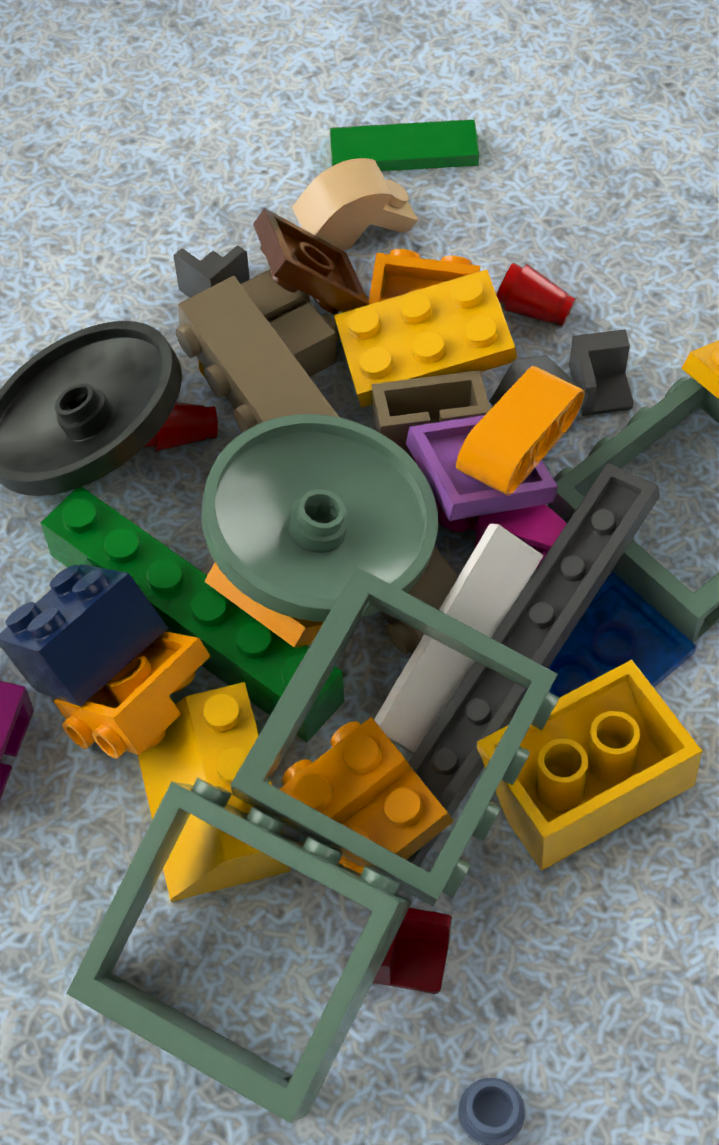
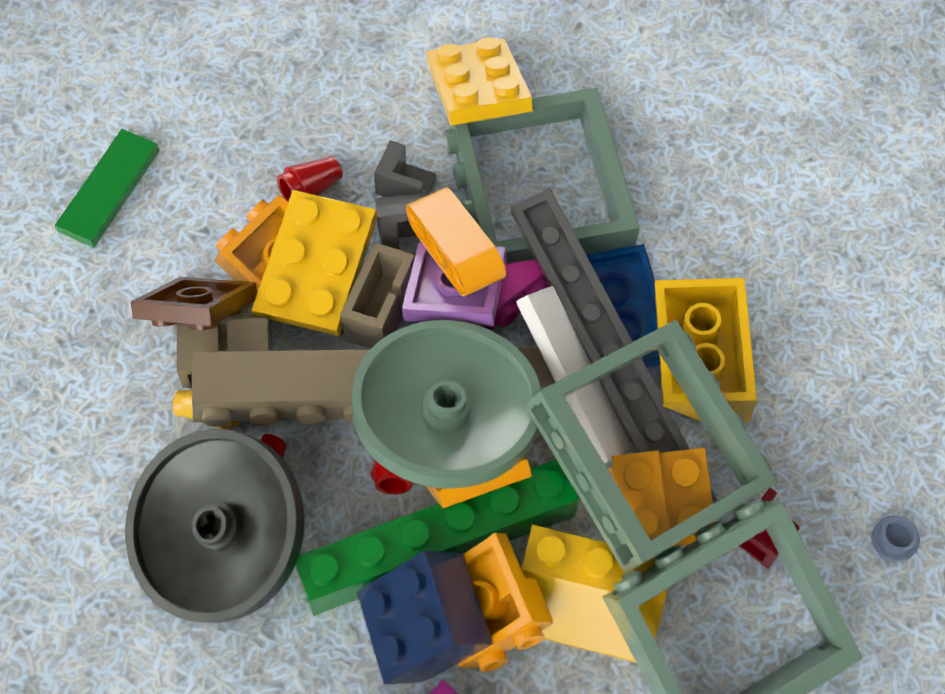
camera: 65 degrees left, 5 degrees up
(199, 275) = (141, 377): dark grey panel -> none
(349, 199) = (148, 248): tan brick -> none

